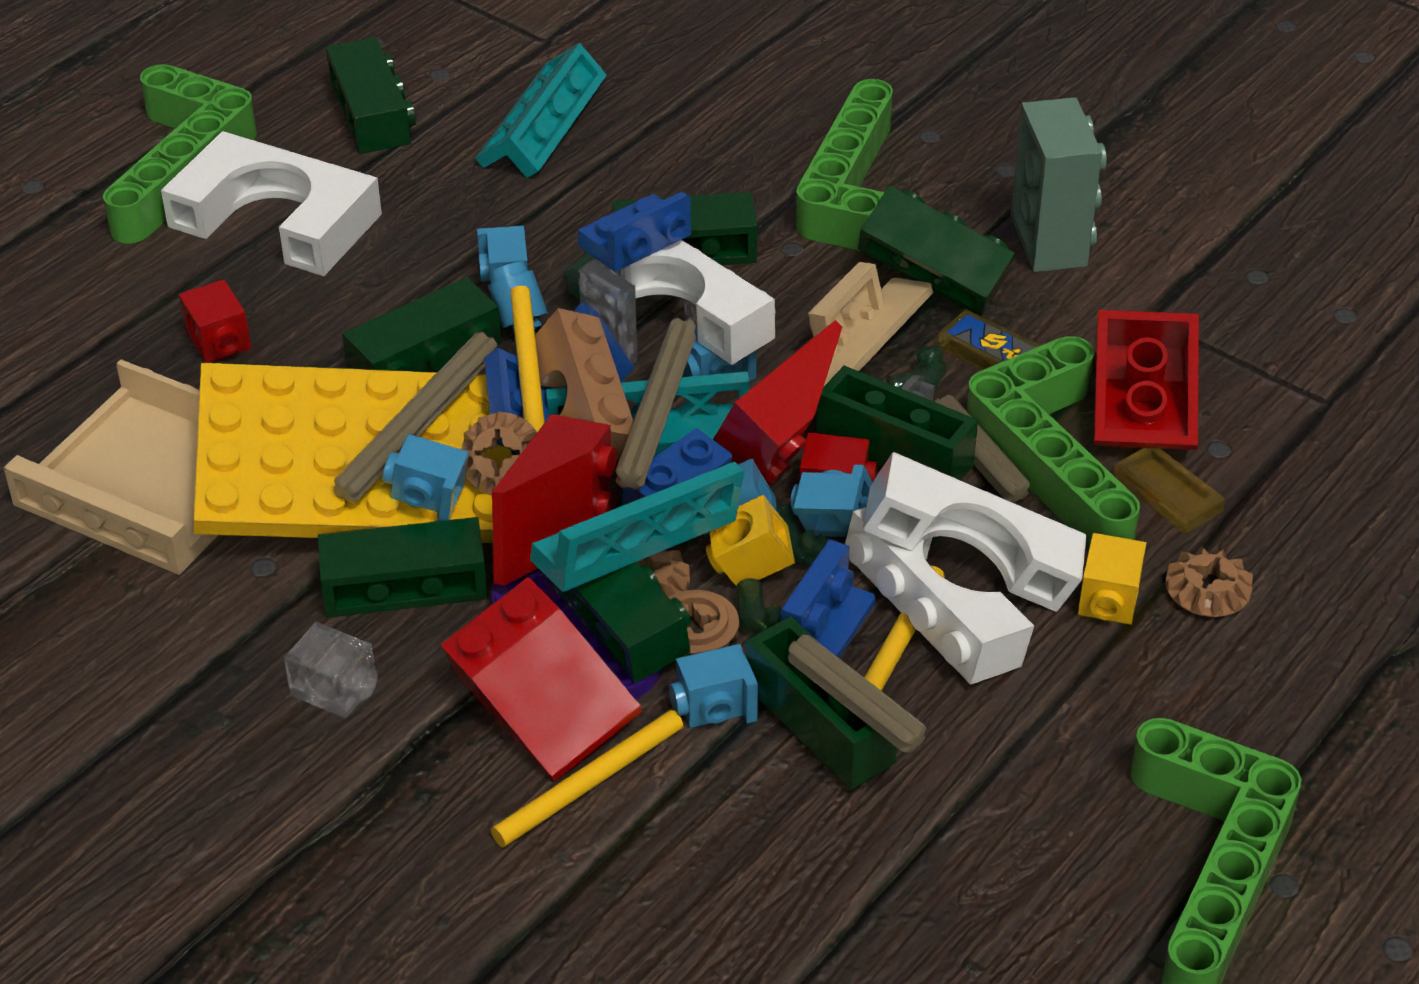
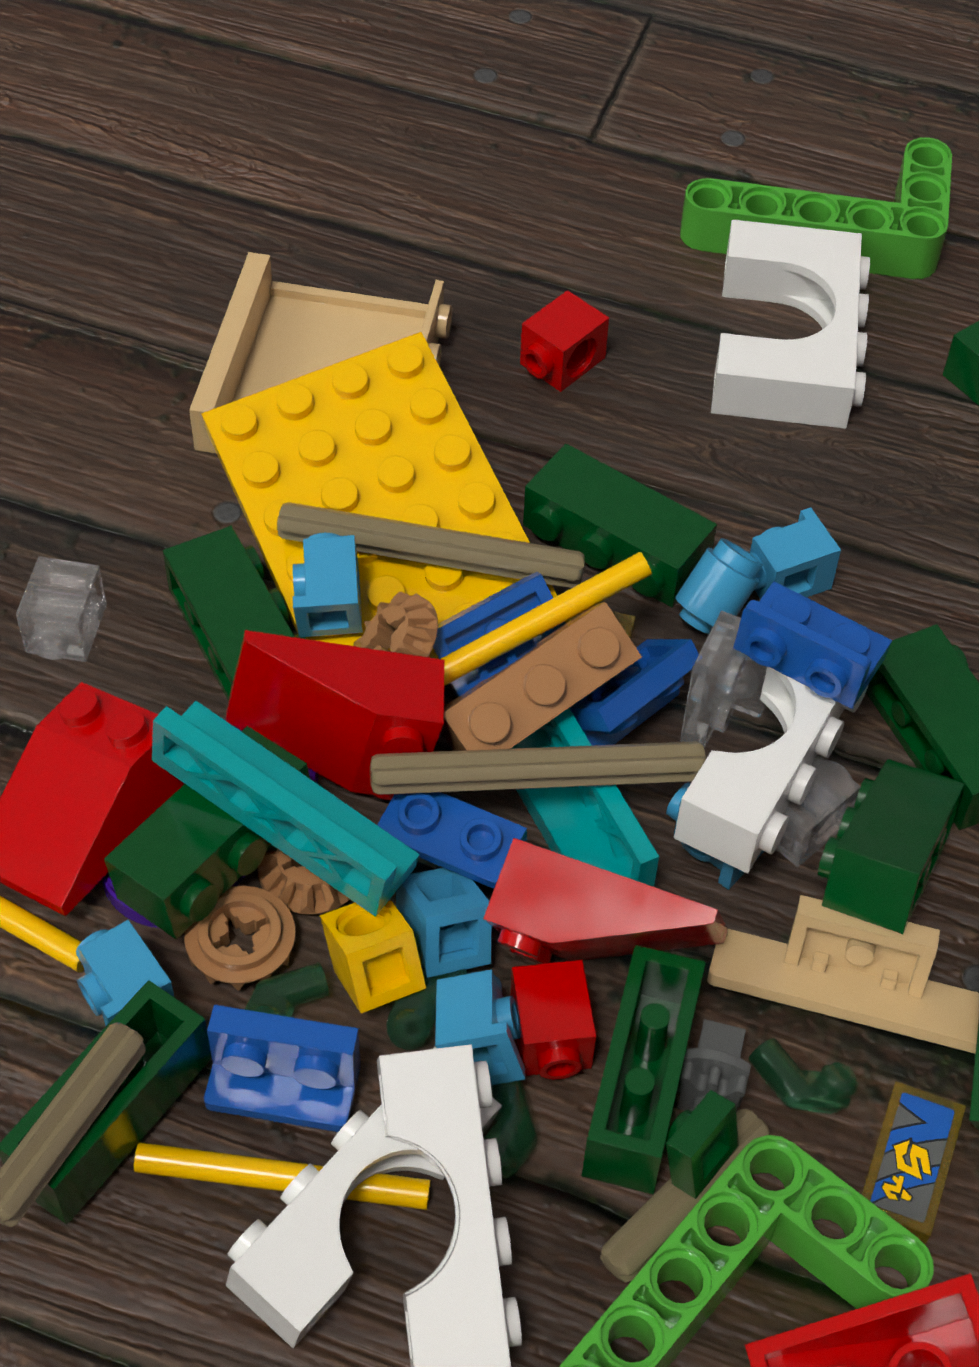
camera: 70 degrees right, 10 degrees up
(790, 263) = (889, 845): none -> dark green brick
(964, 399) = (701, 1143): none -> dark green plate

